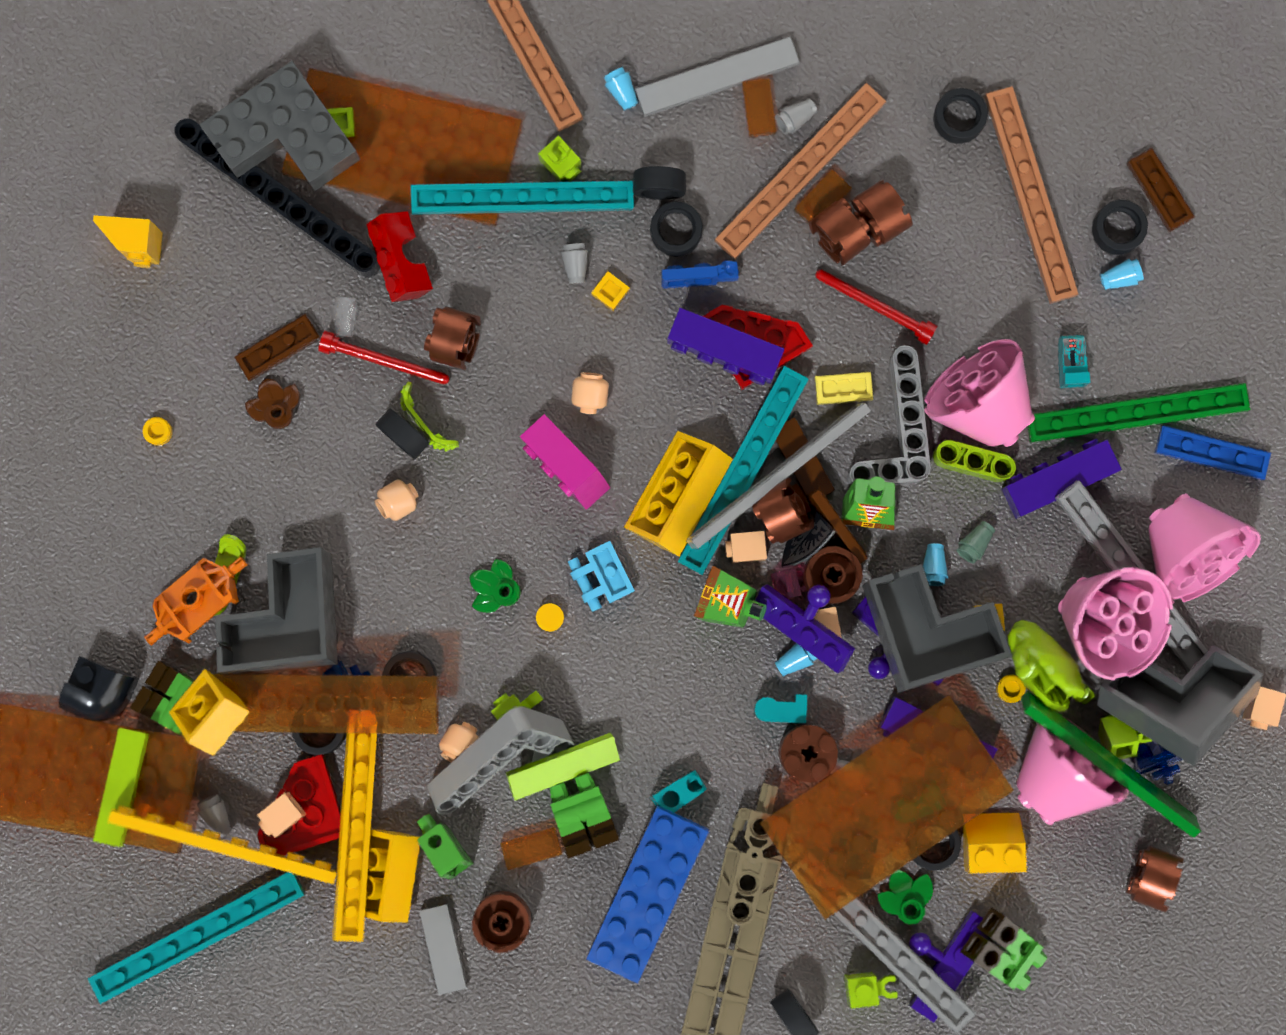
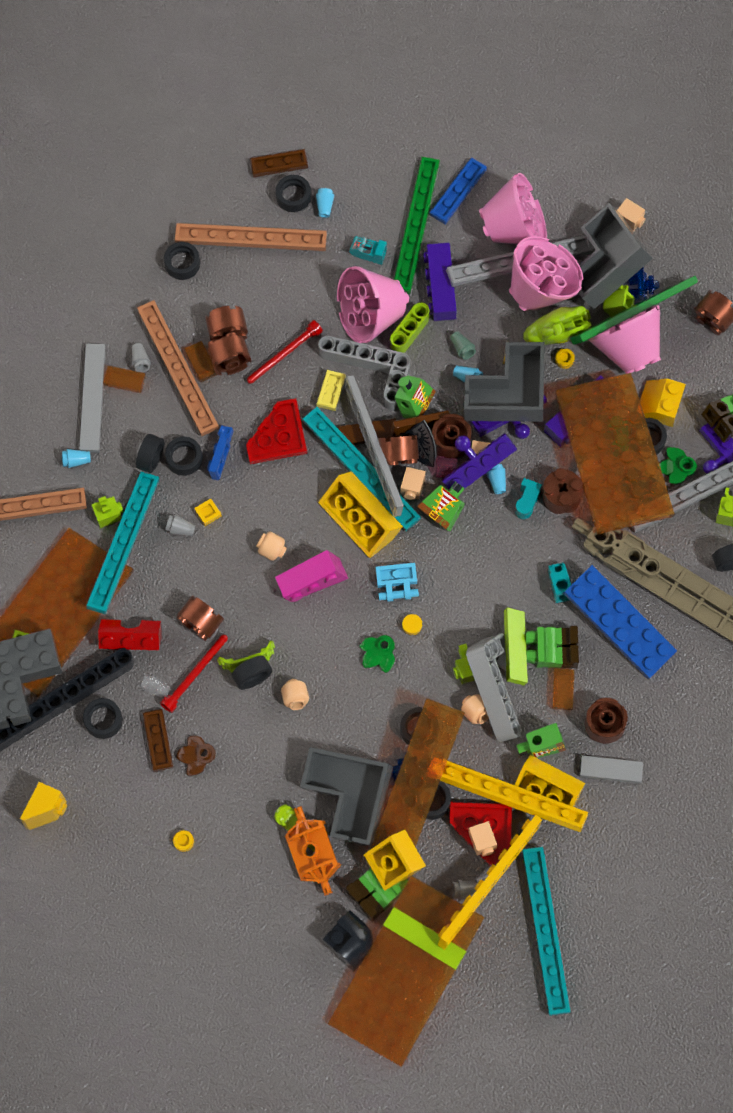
camera: 65 degrees left, 15 degrees down
(279, 245) = (99, 703): none -> black tyre
(725, 346) = (275, 448): dark purple brick -> none

